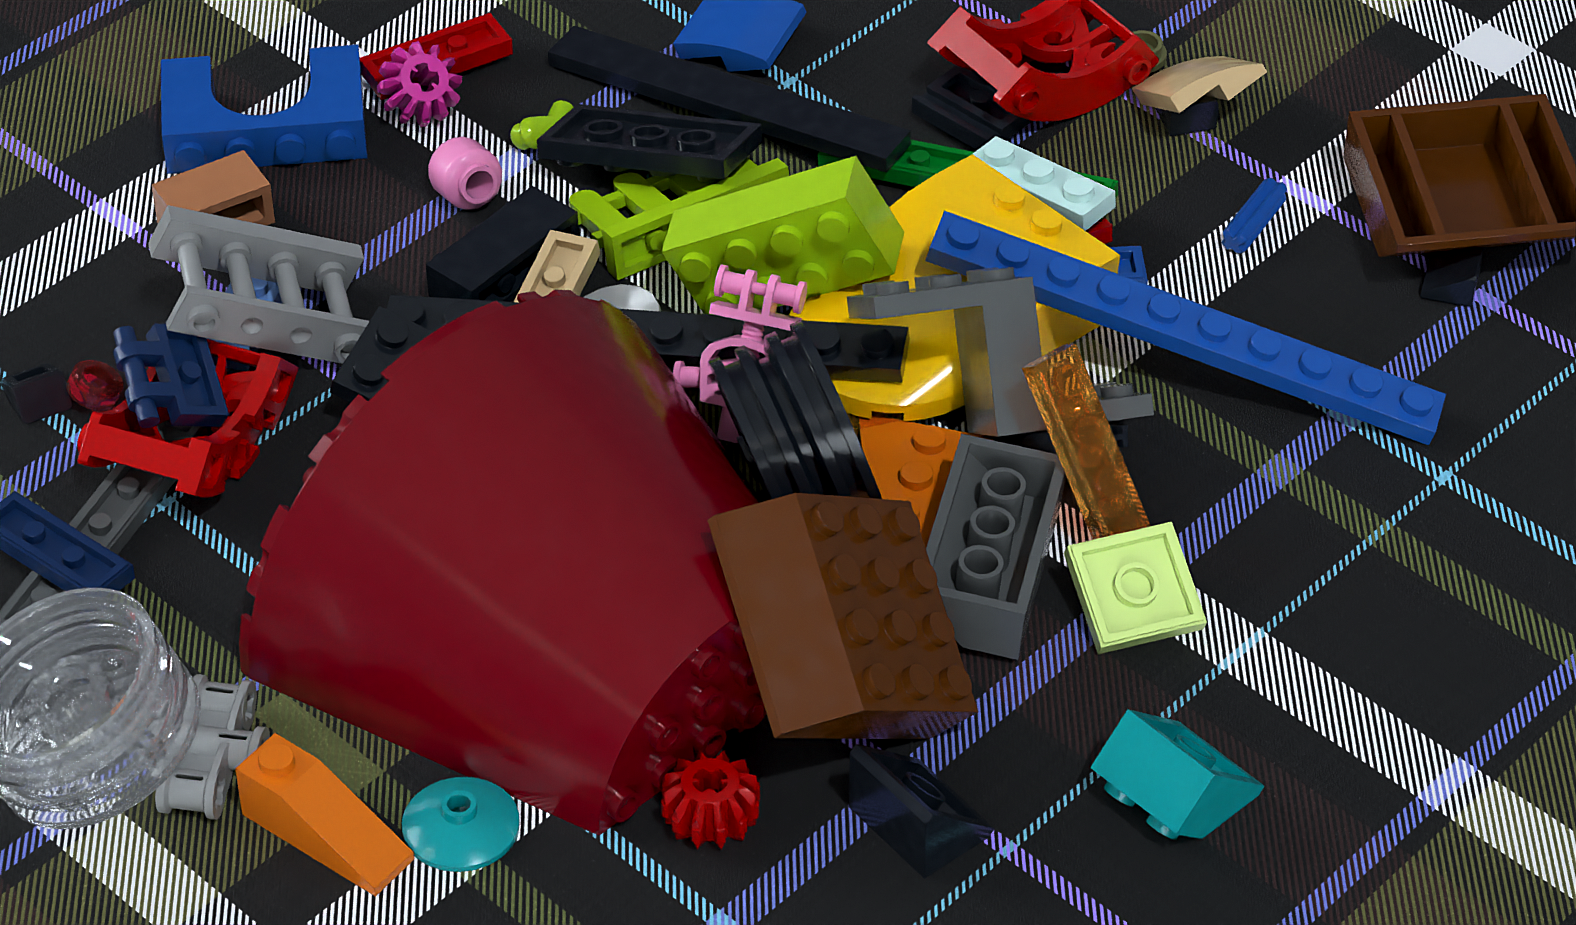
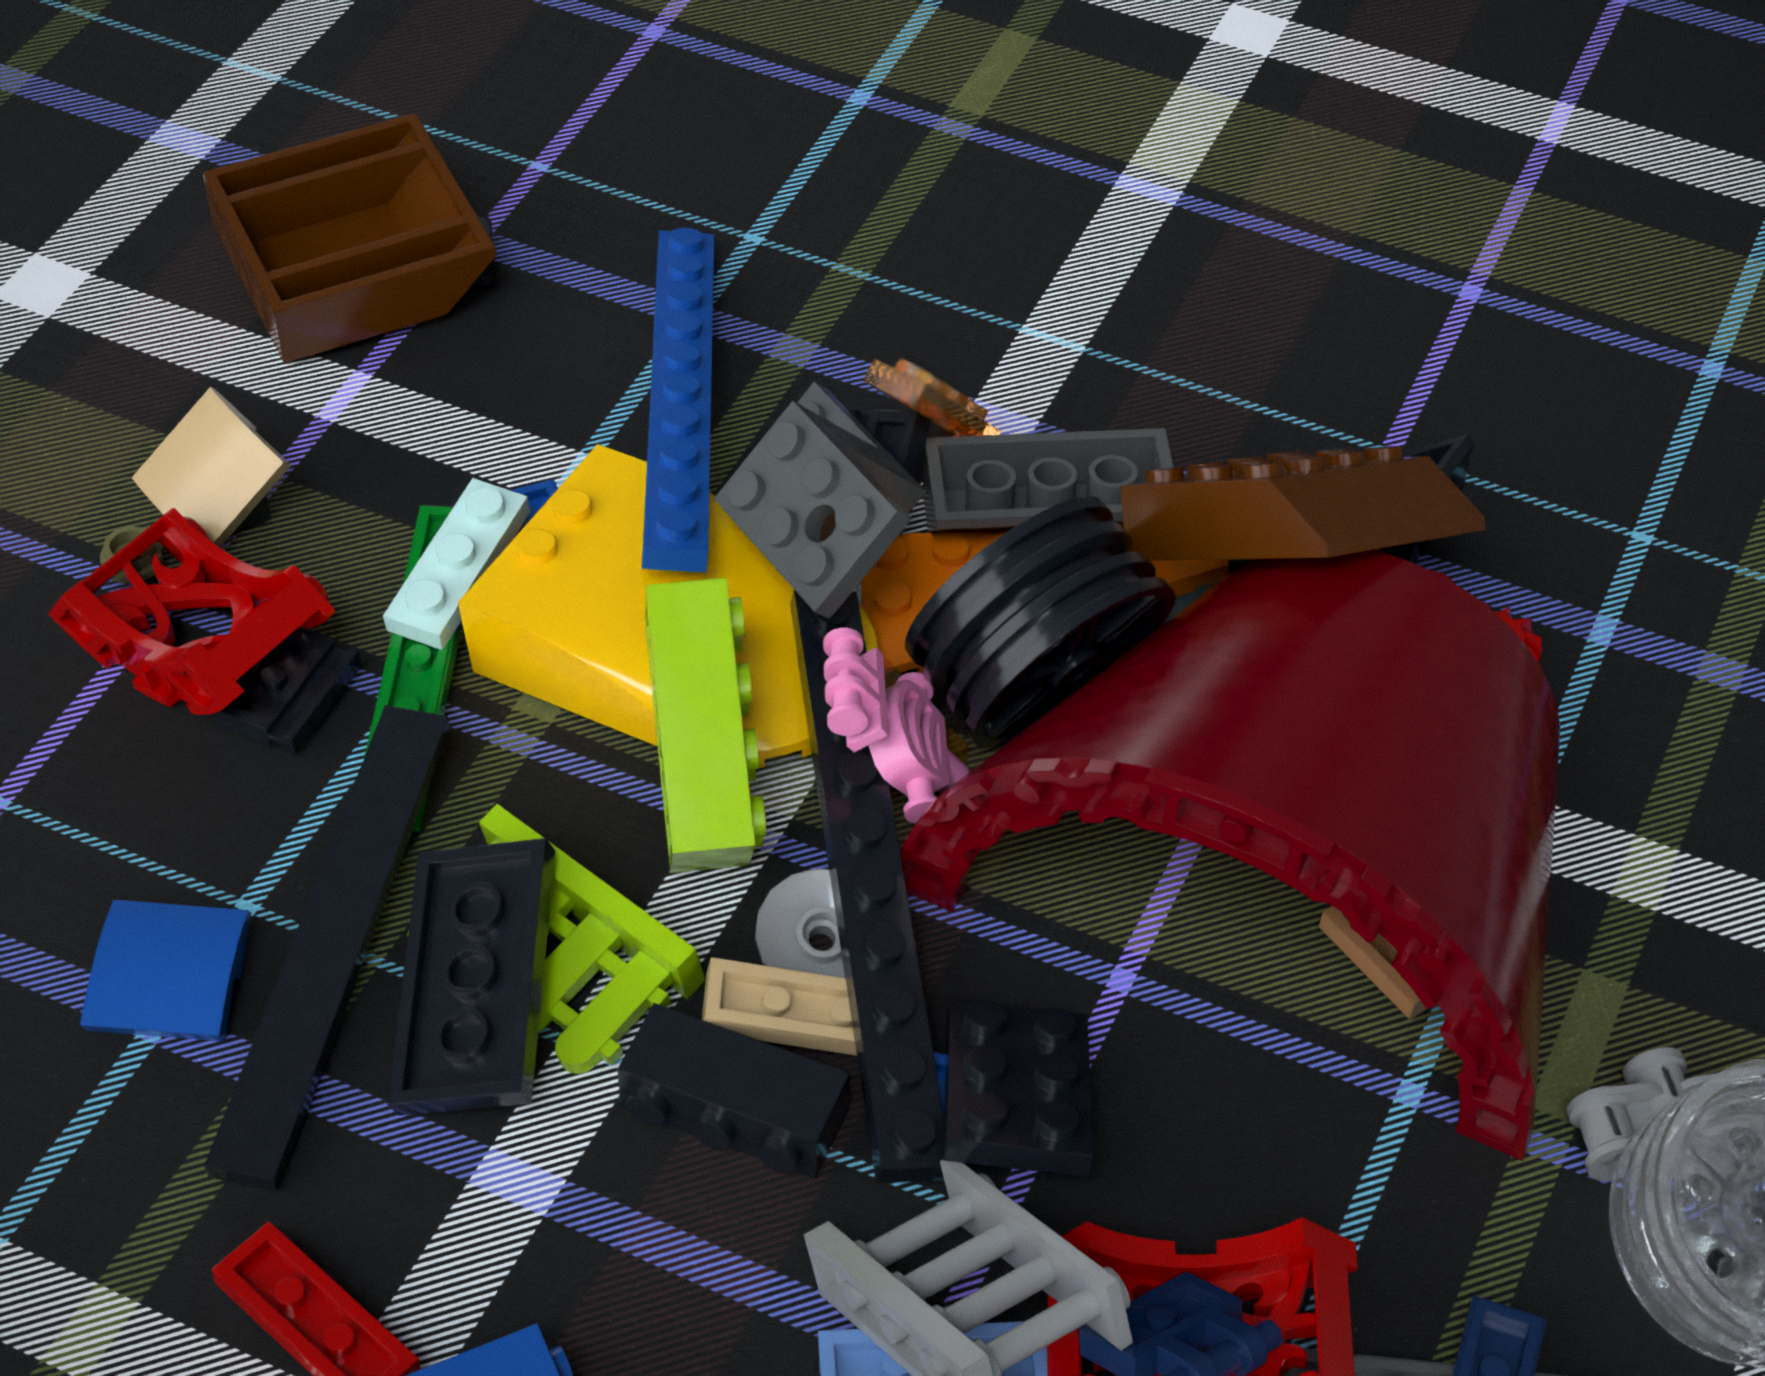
camera: 110 degrees left, 5 degrees up
(319, 815) = (1704, 985): orange slope -> none
(430, 73) = (418, 1293): dark pink gear -> none
(460, 824) = (1611, 893): teal dish -> none
(465, 173) = (580, 1187): bright pink head -> none
(525, 134) = (437, 1130): lime arm -> none
(1135, 587) = (1035, 395): yellowish green tile -> none
(1172, 776) = (1264, 331): teal slope -> none
(1254, 215) = (408, 416): blue axle -> none

